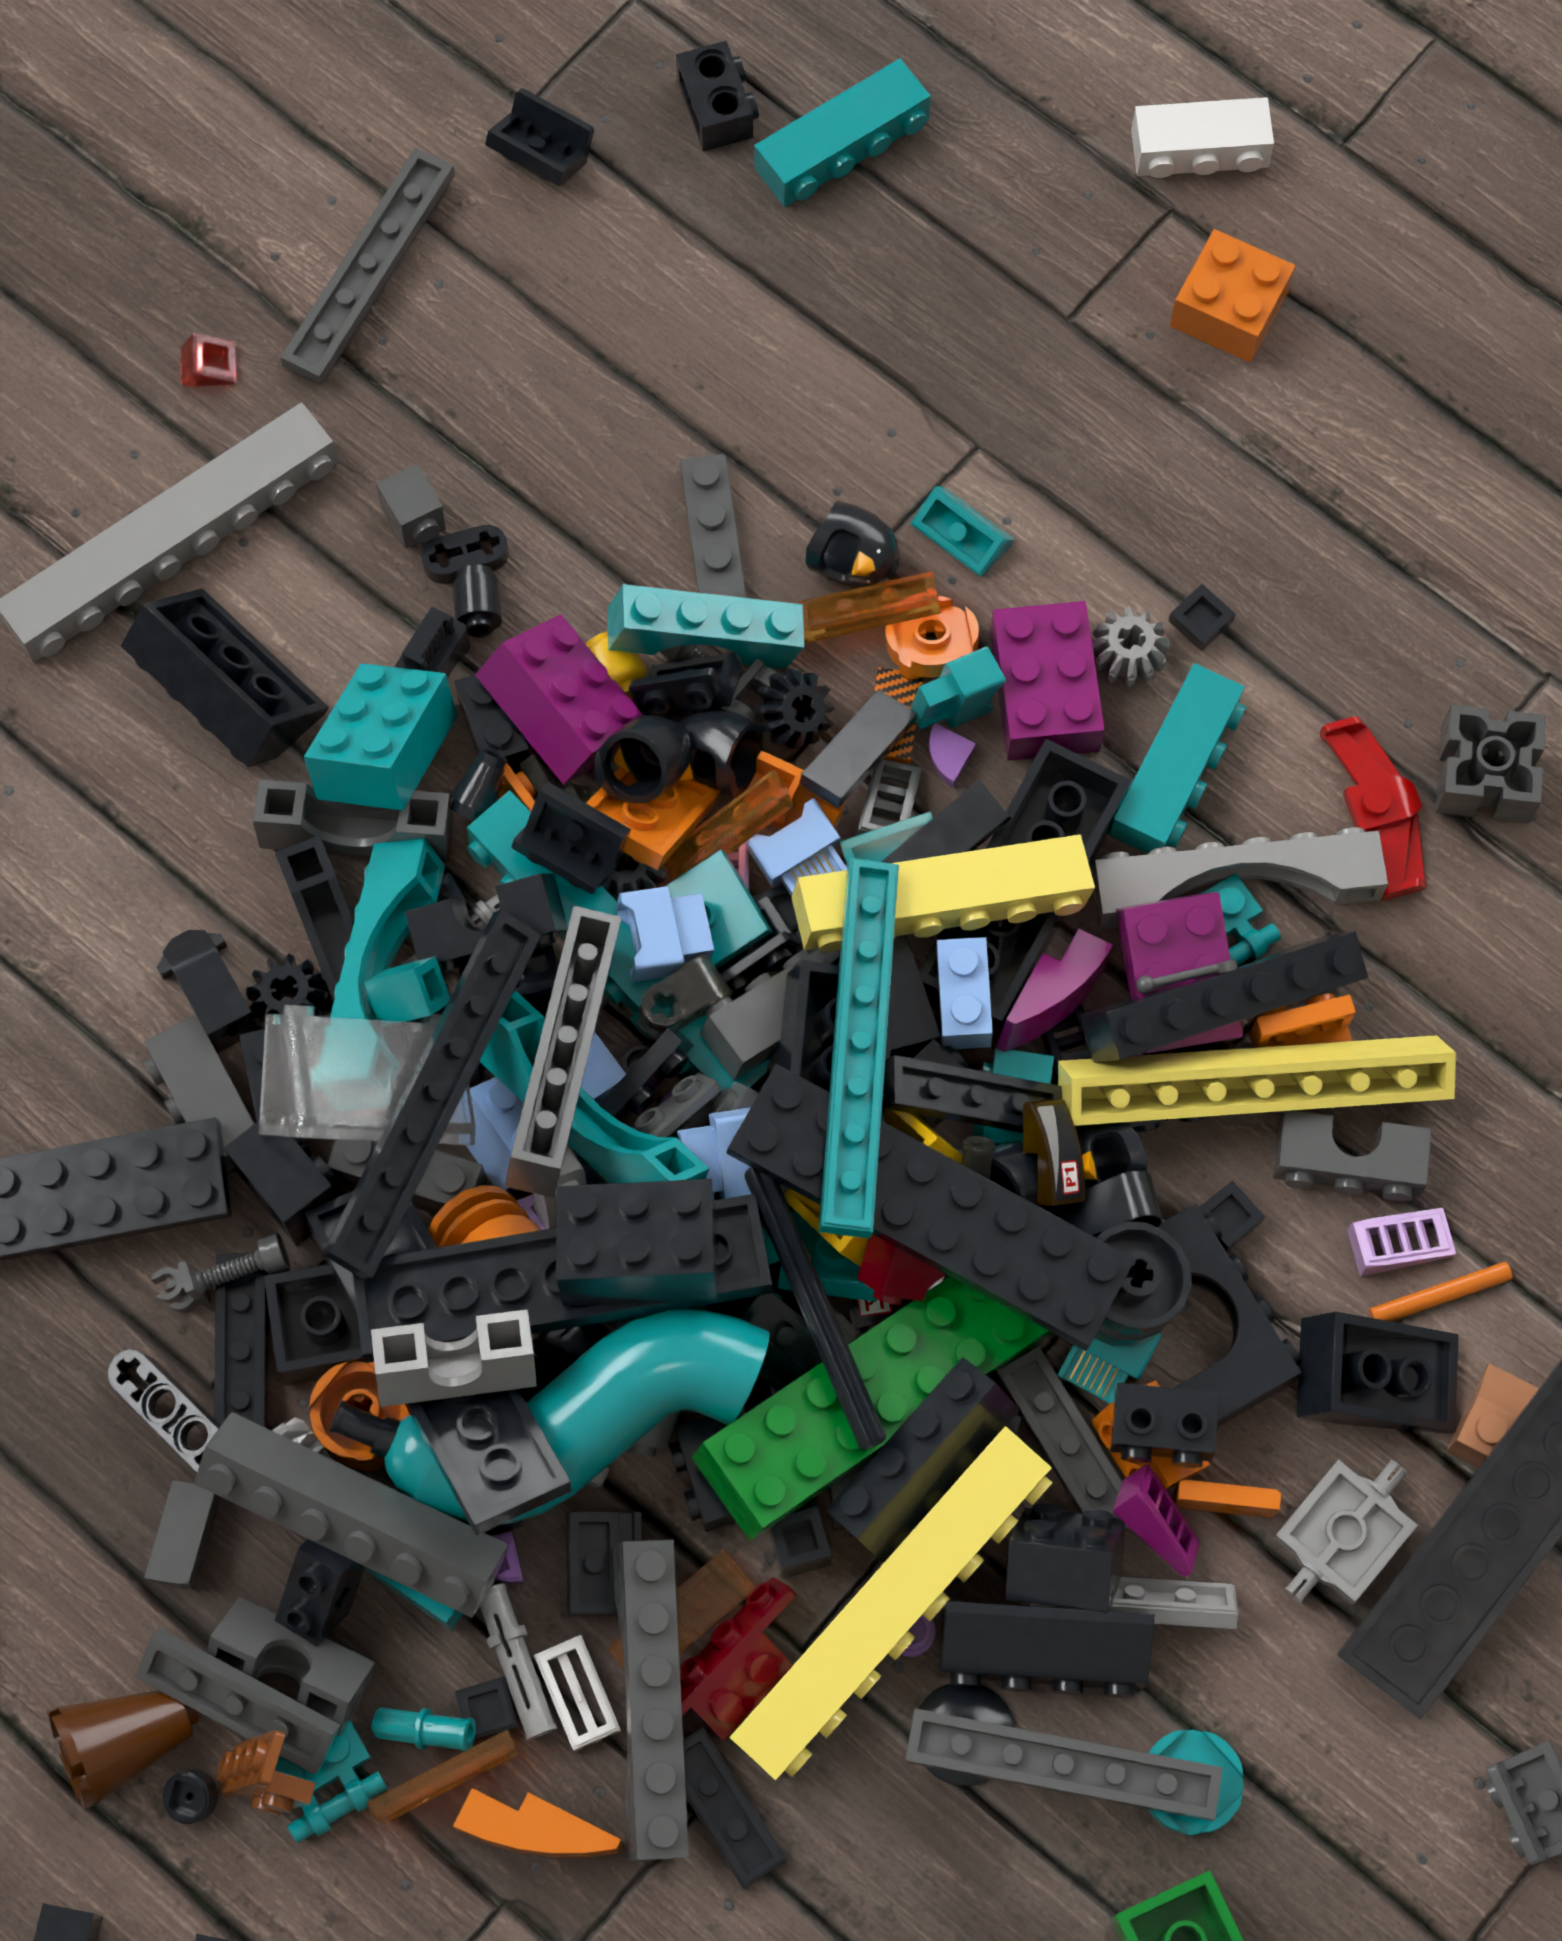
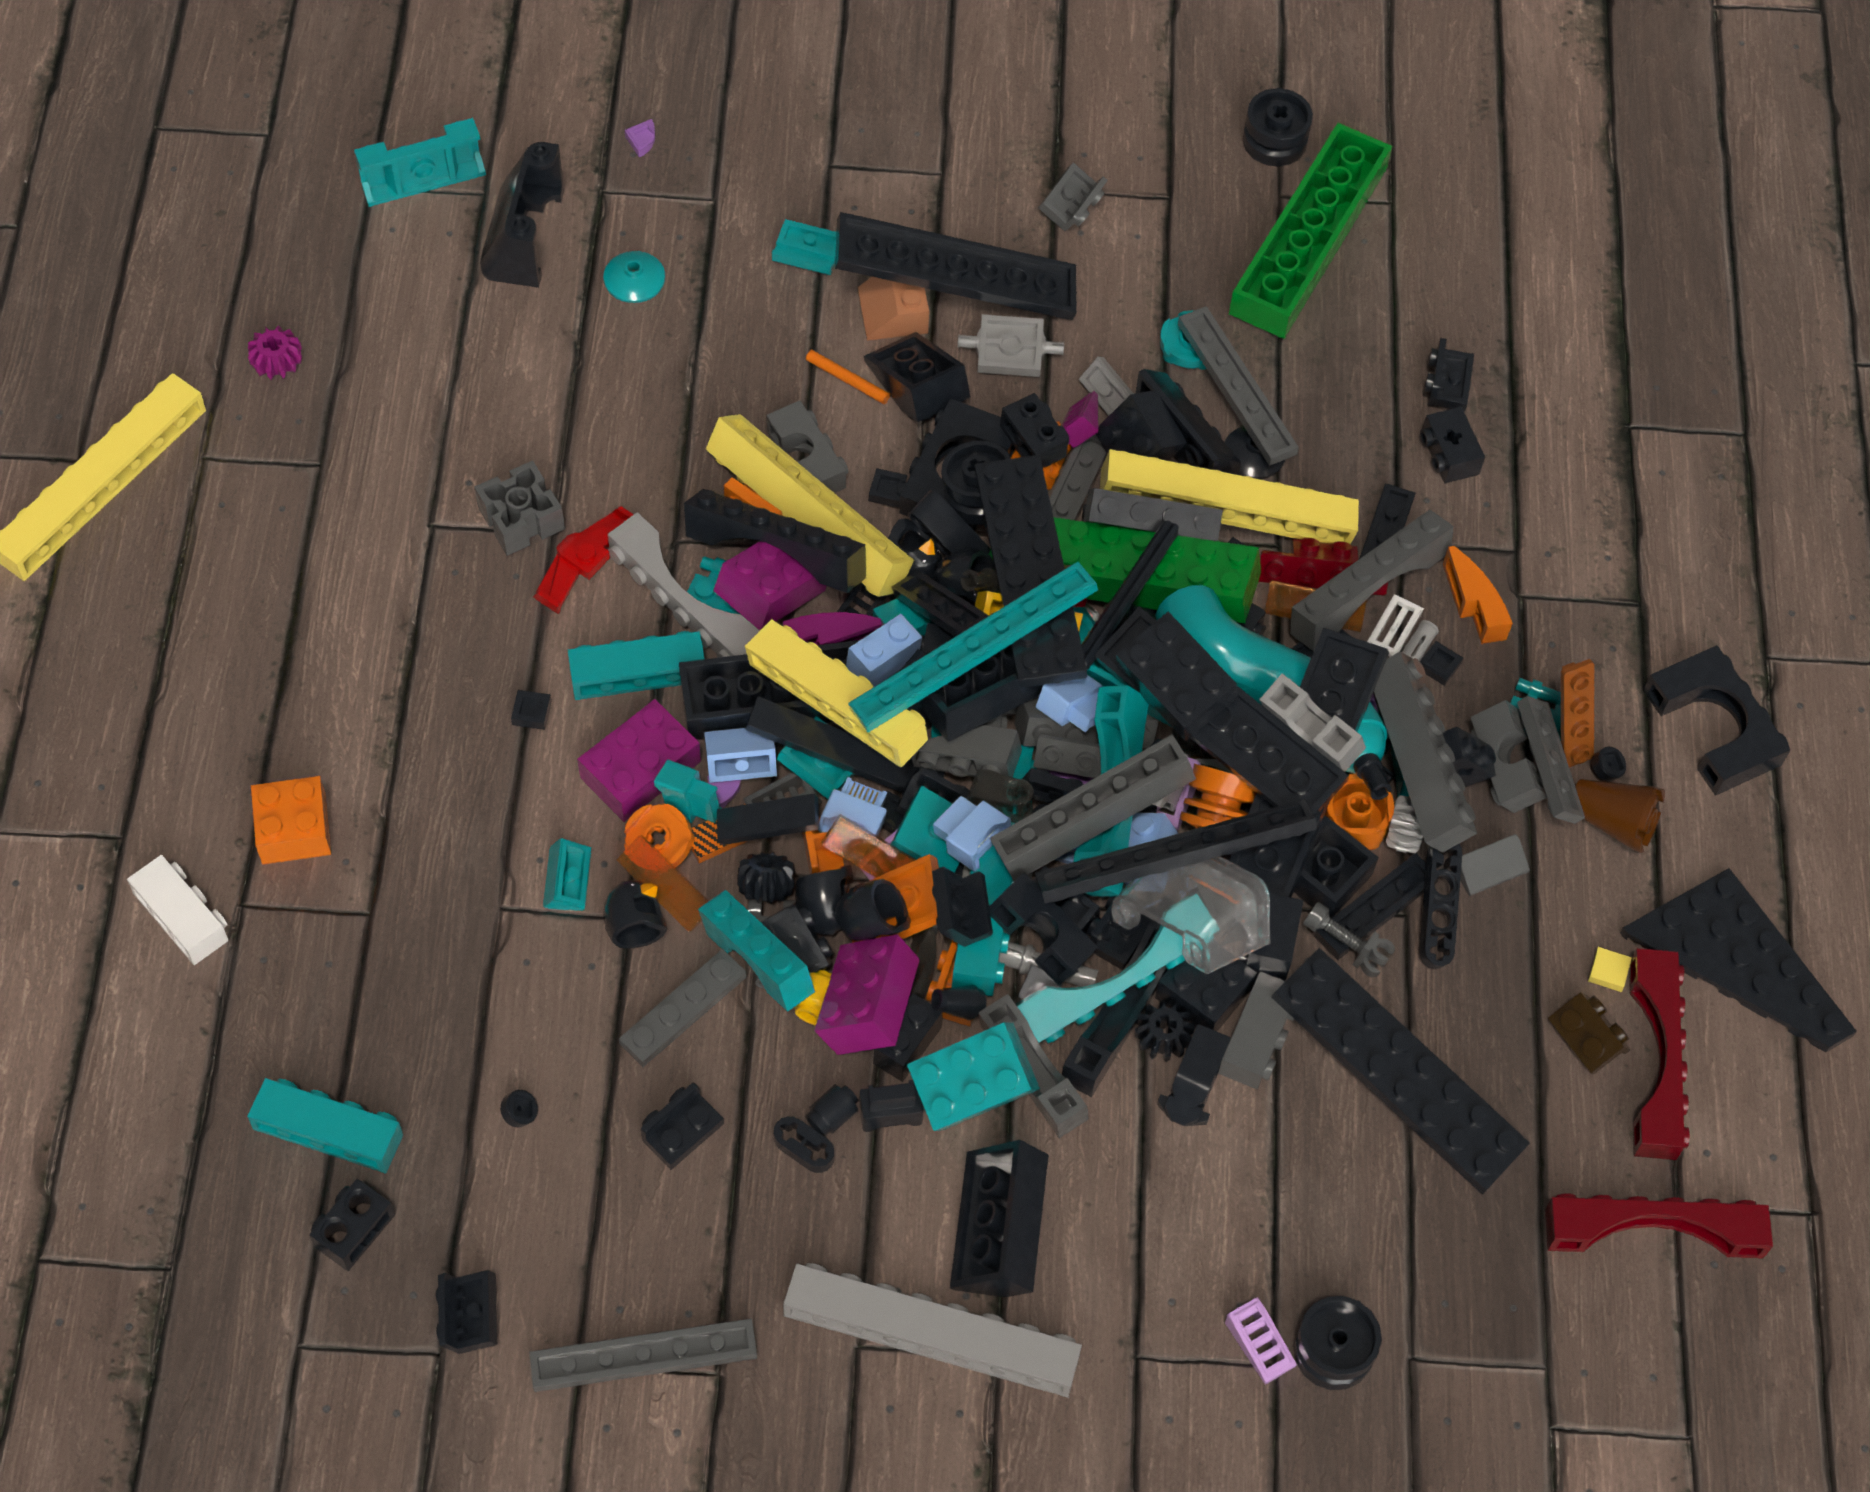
camera: 130 degrees left, 10 degrees down
(208, 361) = (790, 1410): clear red slope -> none
(407, 991) = (1120, 936): teal brick -> none
(411, 506) = (802, 1188): dark grey brick -> none
(424, 1728) = (1477, 677): teal axle -> none
(443, 1777) = (1491, 652): clear orange tile -> none
(577, 452) = (680, 1125): none -> black bracket
(721, 315) = (519, 1108): none -> black tile
(976, 759) = (739, 755): none -> light blue brick
(1053, 1136) = (934, 557): slope -> none
(1144, 654) = (586, 722): light grey gear -> none
(1147, 984) = (763, 538): dark grey hinge -> none
(1227, 1498) = (1030, 384): orange tile -> none
(1363, 1249) = (844, 425): lavender slope -> none

